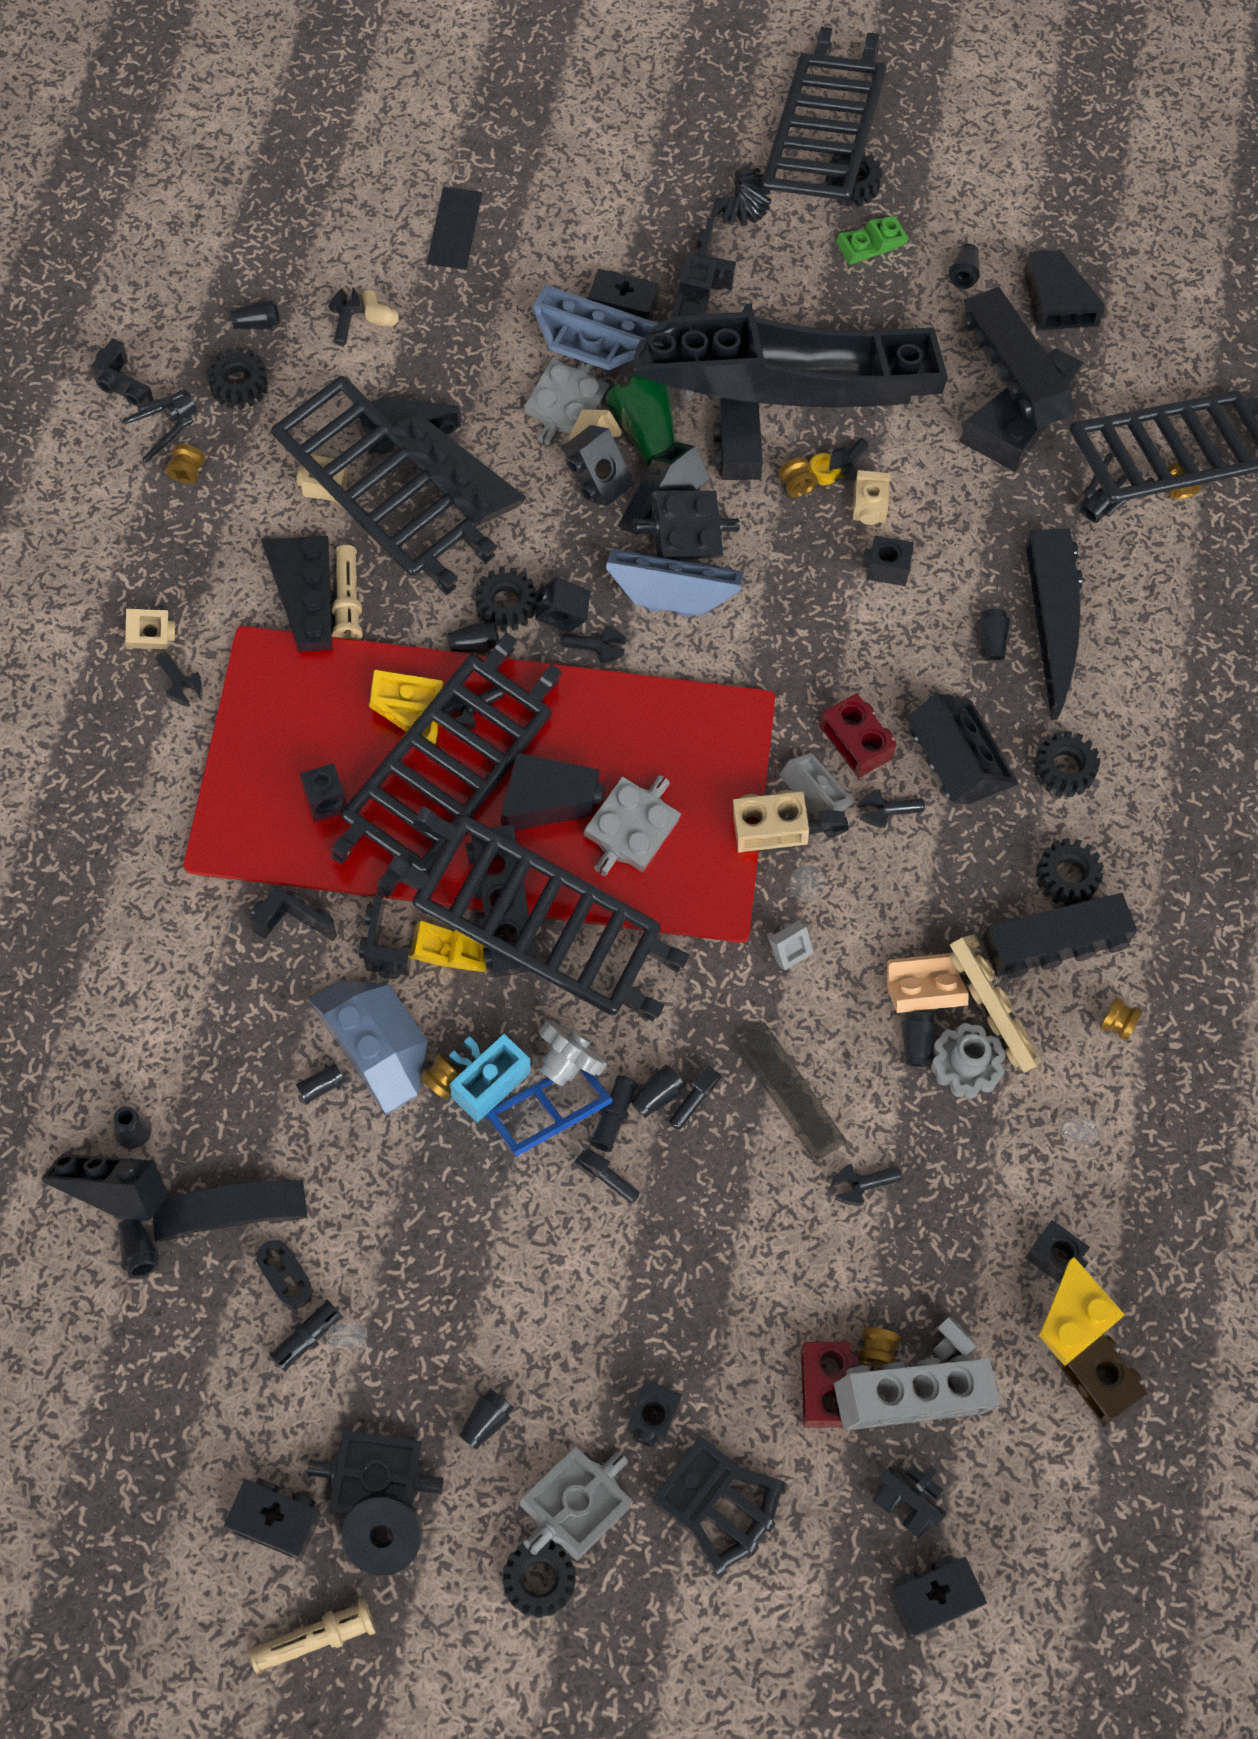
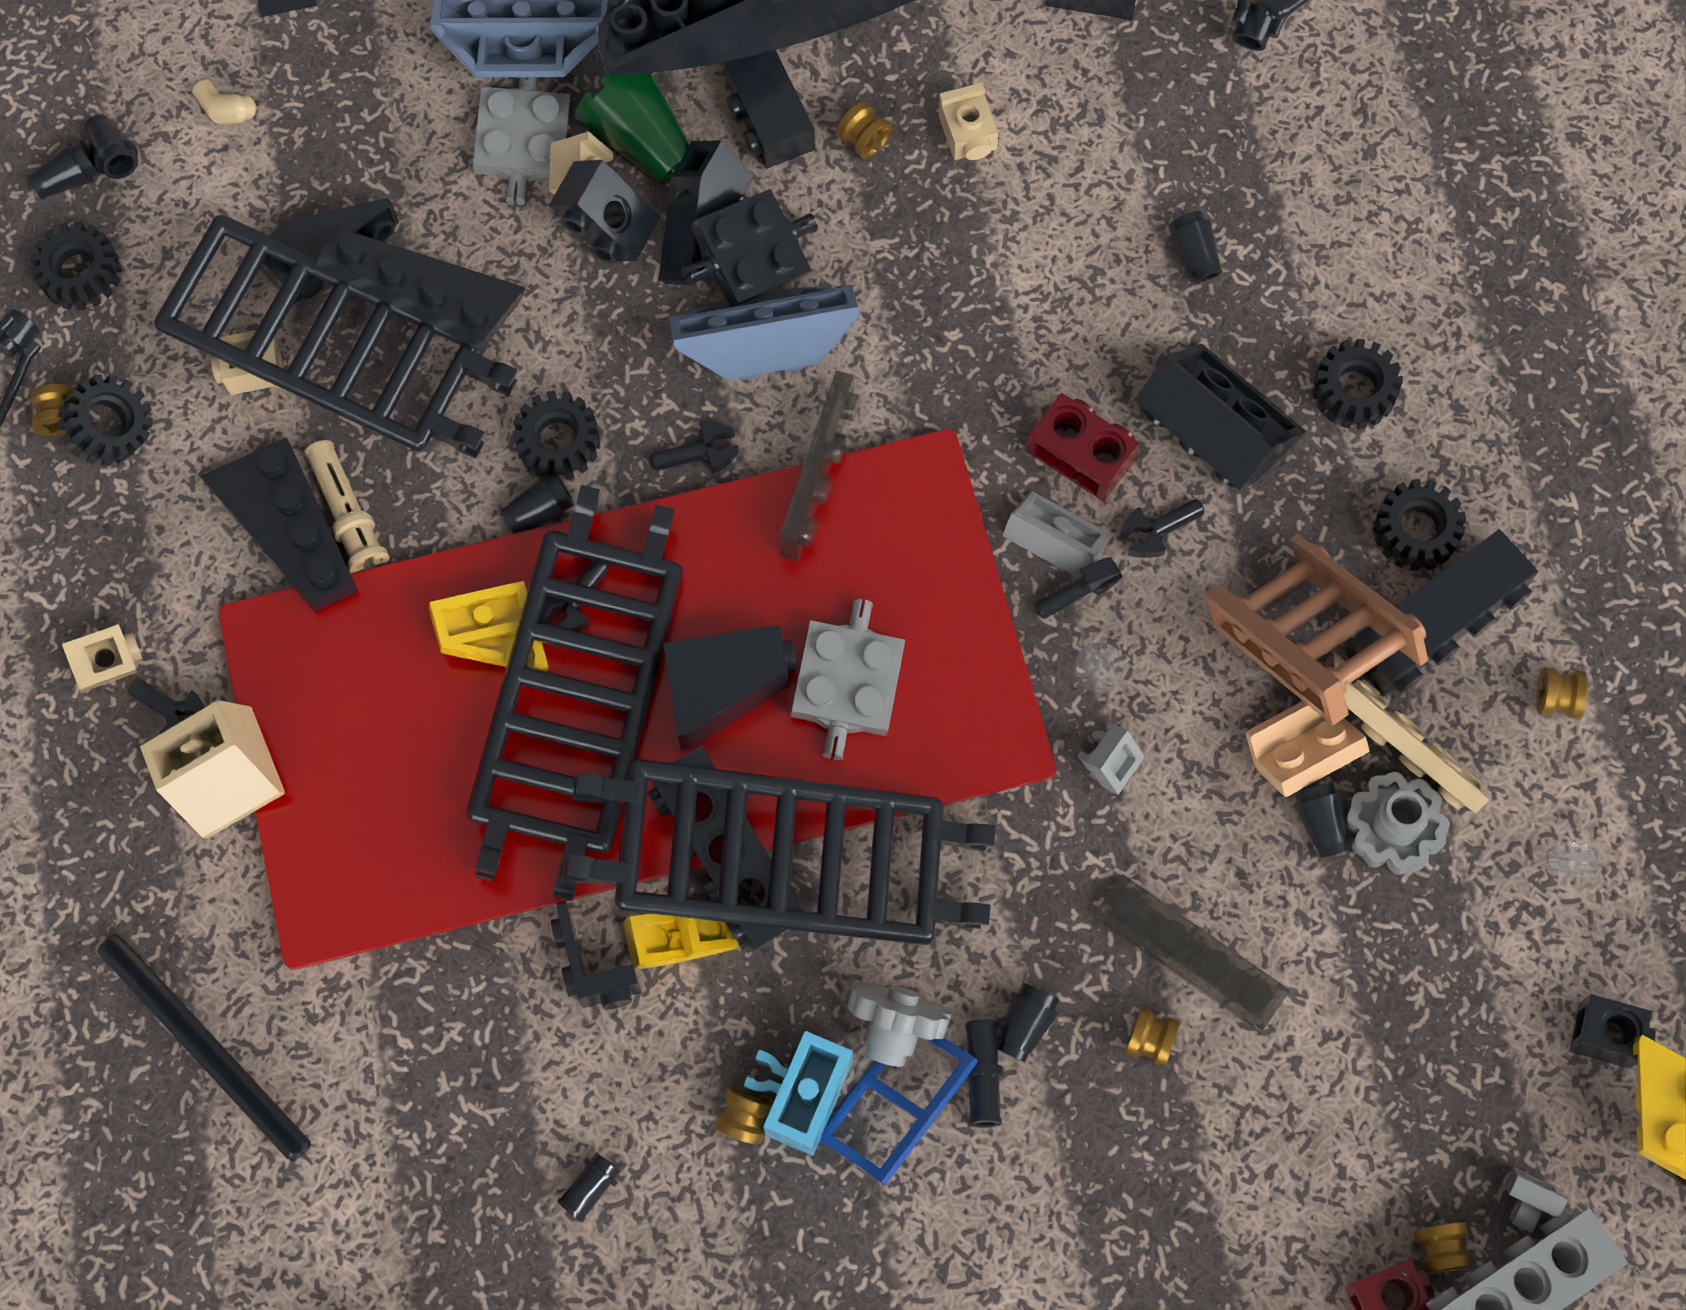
camera: 15 degrees left, 5 degrees up
(109, 900) = (204, 1048): none -> black axle
(190, 723) = (214, 767): none -> tan slope
(202, 493) = (123, 402): none -> black tyre
(269, 912) = (424, 983): black bracket -> none
(292, 312) = (110, 148): none -> black cone
(323, 792) = (430, 793): black brick -> none
(346, 312) = (189, 111): black bar -> none
(375, 1038) = (634, 1096): sand blue wedge -> none
(562, 604) = (635, 416): black brick -> none
(597, 1166) = (994, 1154): black bar -> none
(665, 686) = (814, 483): none -> clear smoke plate
(703, 1087) = (1077, 1011): black bar -> none
(738, 1134) = (1152, 1037): none -> pearl gold wheel
(771, 830) = (1031, 616): tan brick -> none
(820, 467) = (892, 103): yellow tile -> none
(845, 460) = (914, 84): black bar -> none
(863, 1183) = (1333, 1035): black bar -> none
(894, 550) = (1031, 183): black brick -> none
(938, 923) = (1296, 663): none -> nougat fence
(1056, 606) = (1262, 184): black slope -> none

